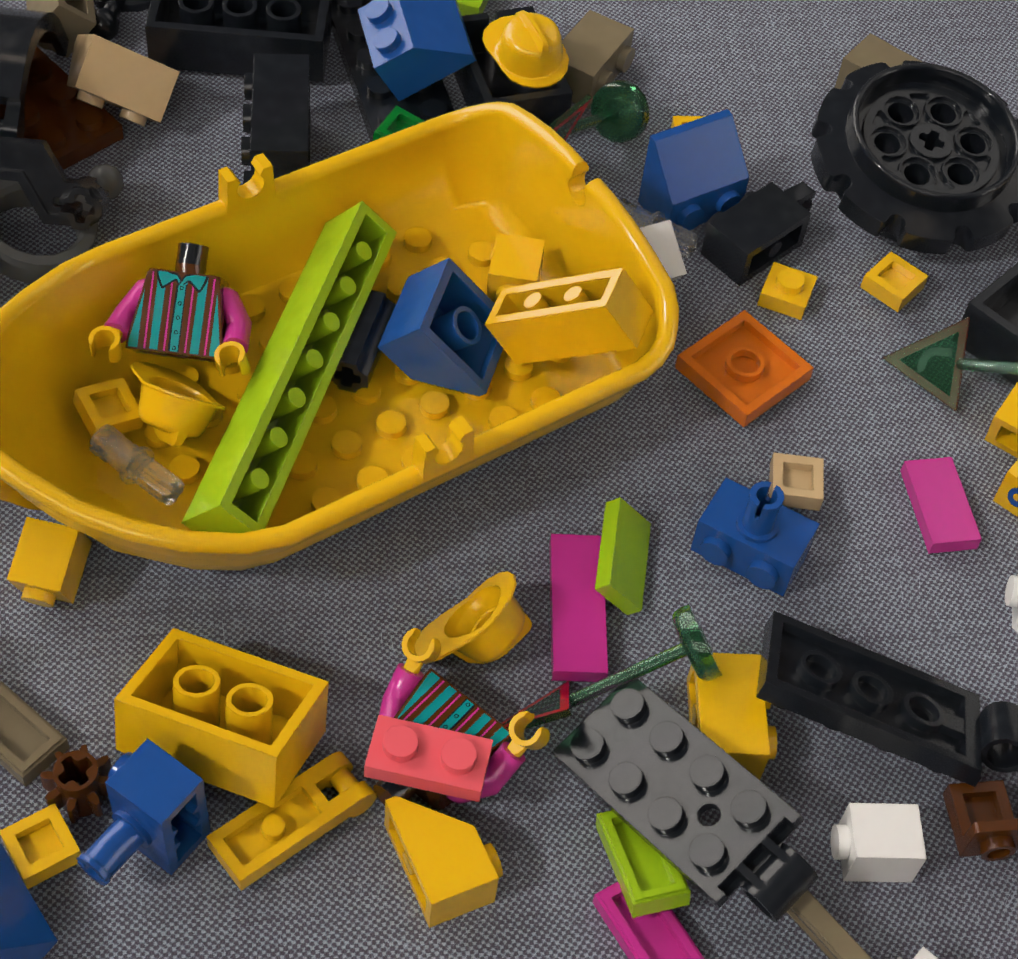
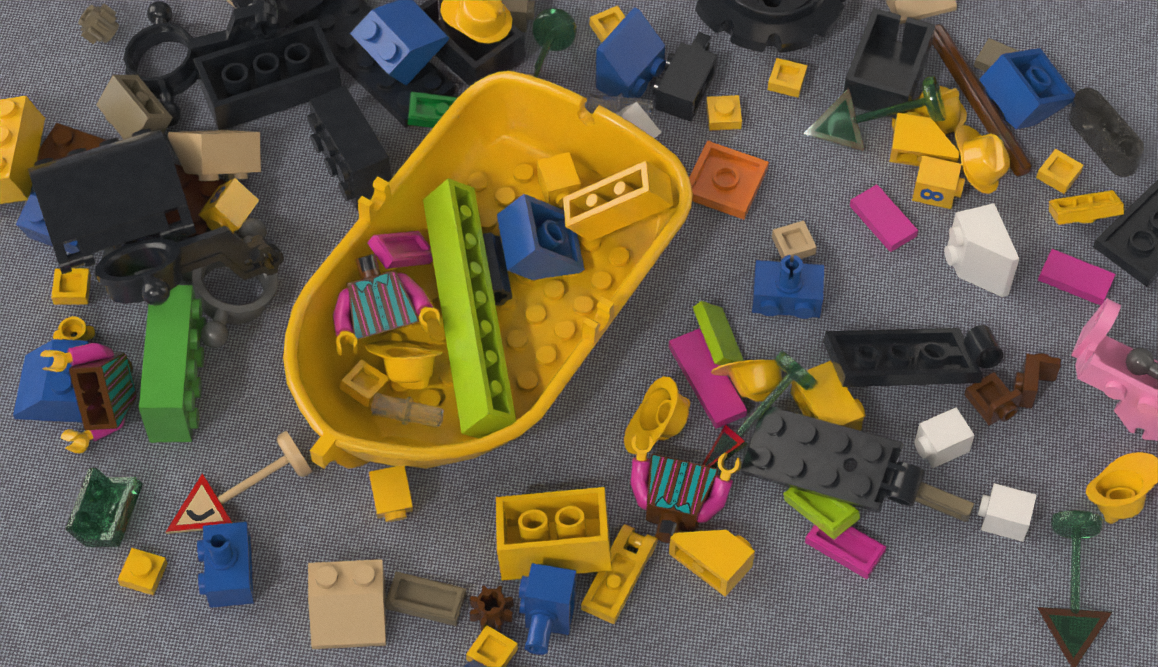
camera: 20 degrees left, 5 degrees up
(91, 143) = (228, 206): none -> yellow brick
(255, 264) = (401, 249): none -> dark pink tile
(428, 758) = (682, 504): coral plate -> none
(633, 626) = (752, 377): none -> yellow piece

